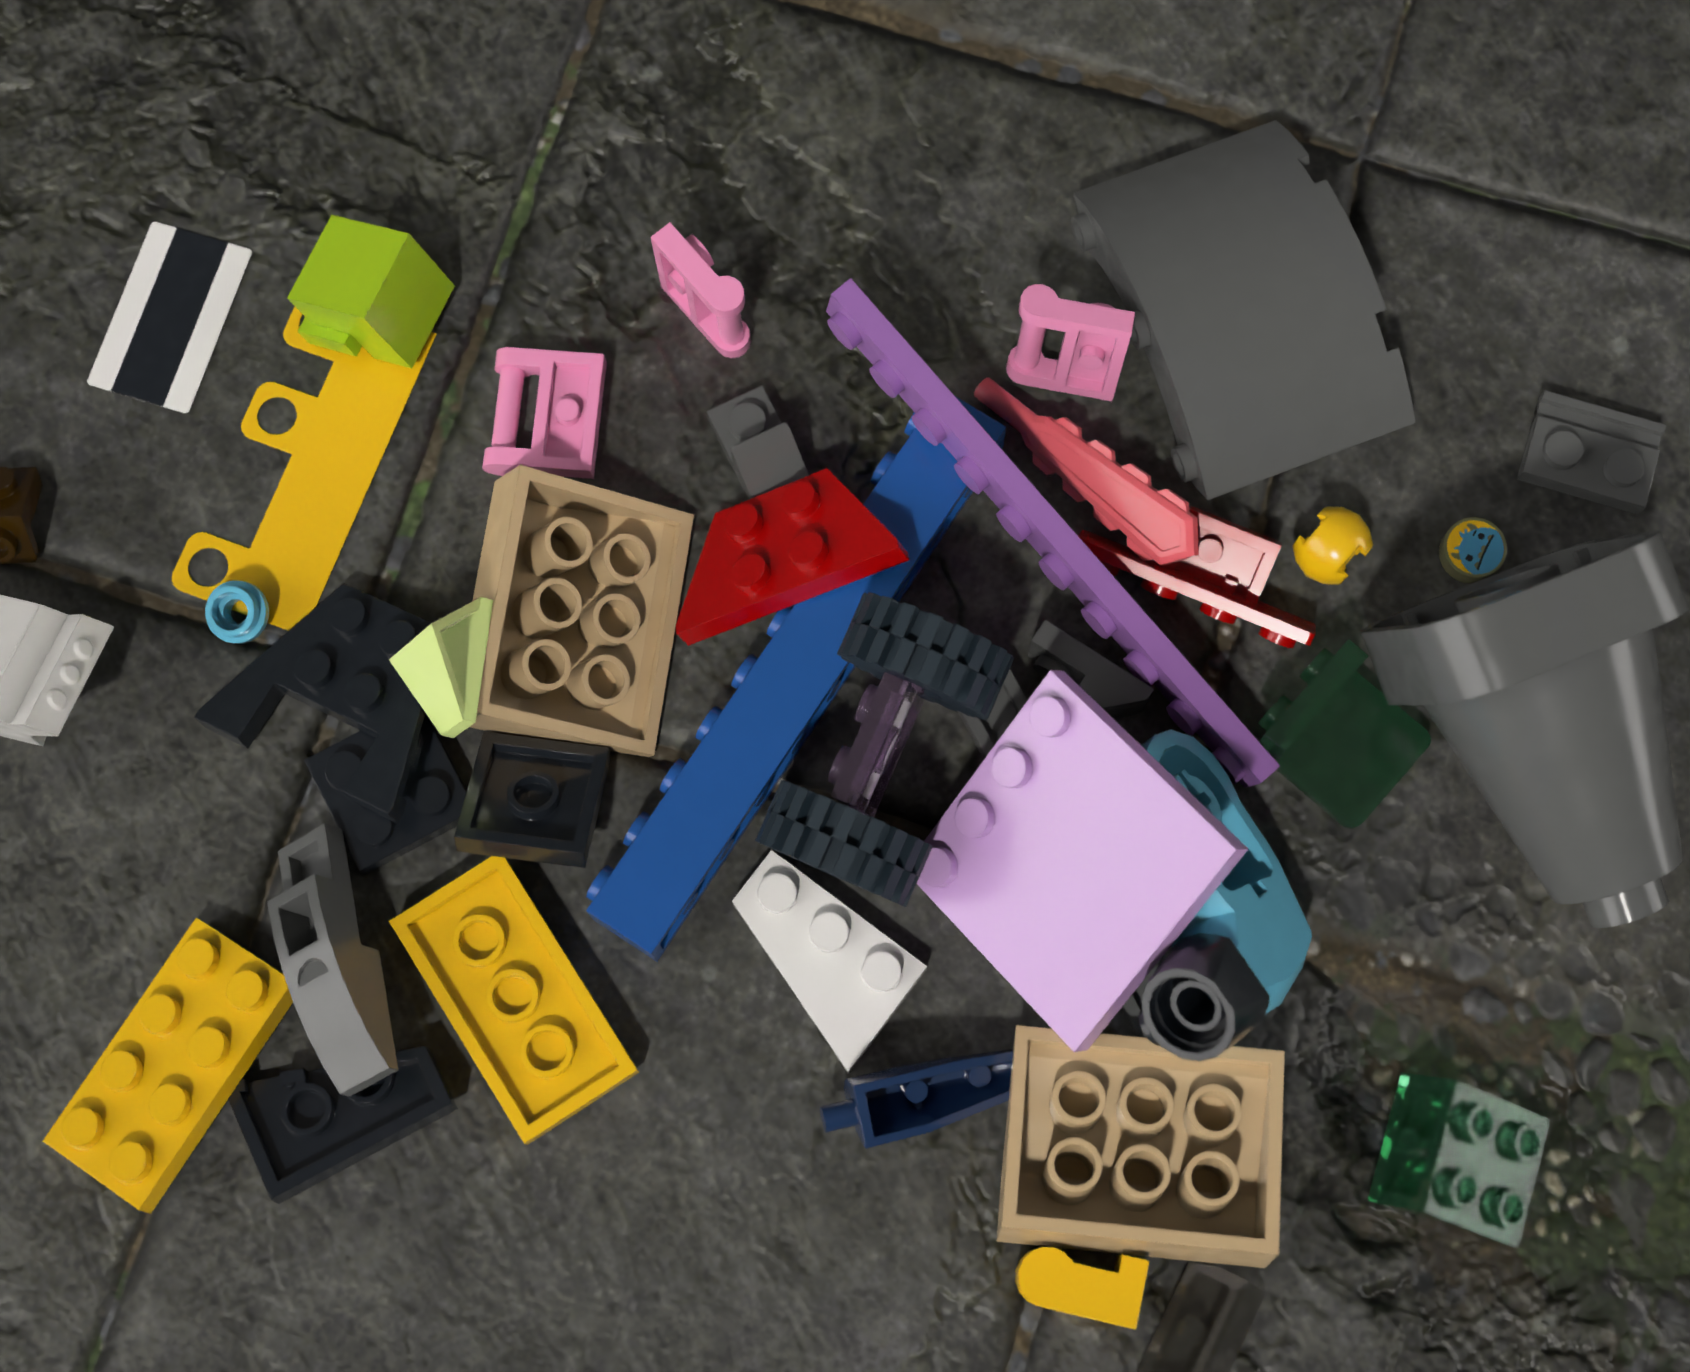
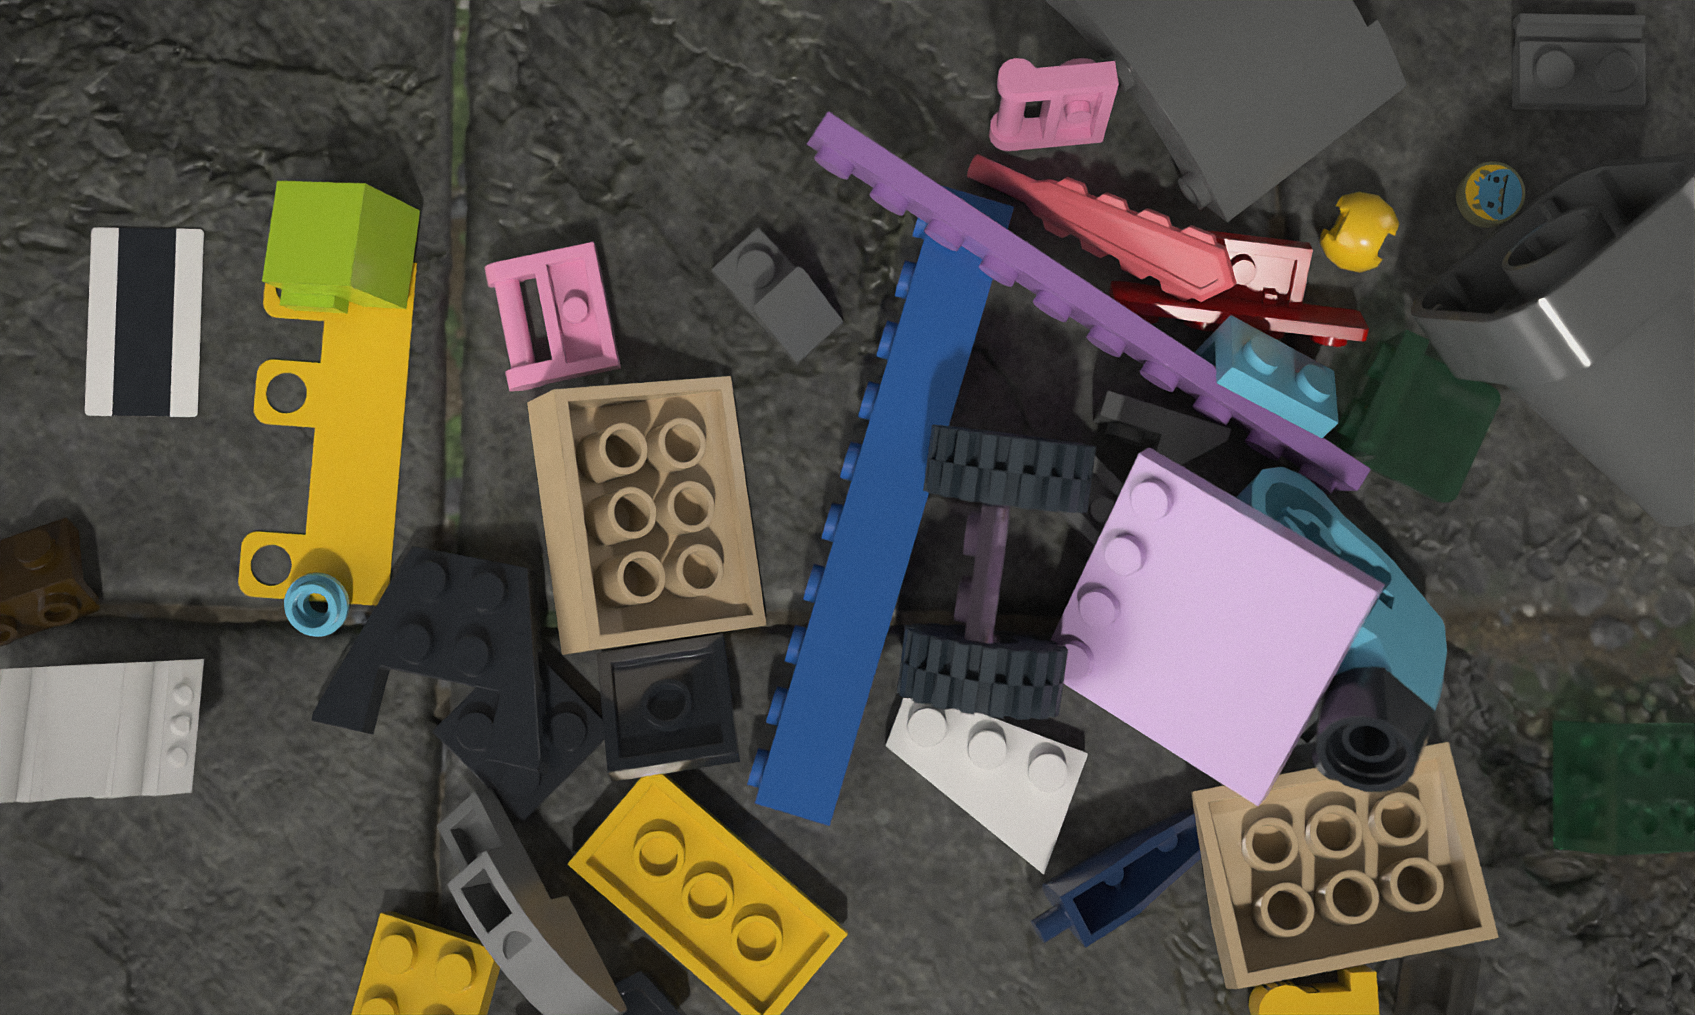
camera: 20 degrees left, 10 degrees up
(447, 666) = (548, 609): yellowish green slope -> none
(704, 297) = (652, 139): bright pink plate -> none
(782, 553) = (833, 396): red wing -> none
(1209, 649) = (1273, 375): none -> medium azure bracket

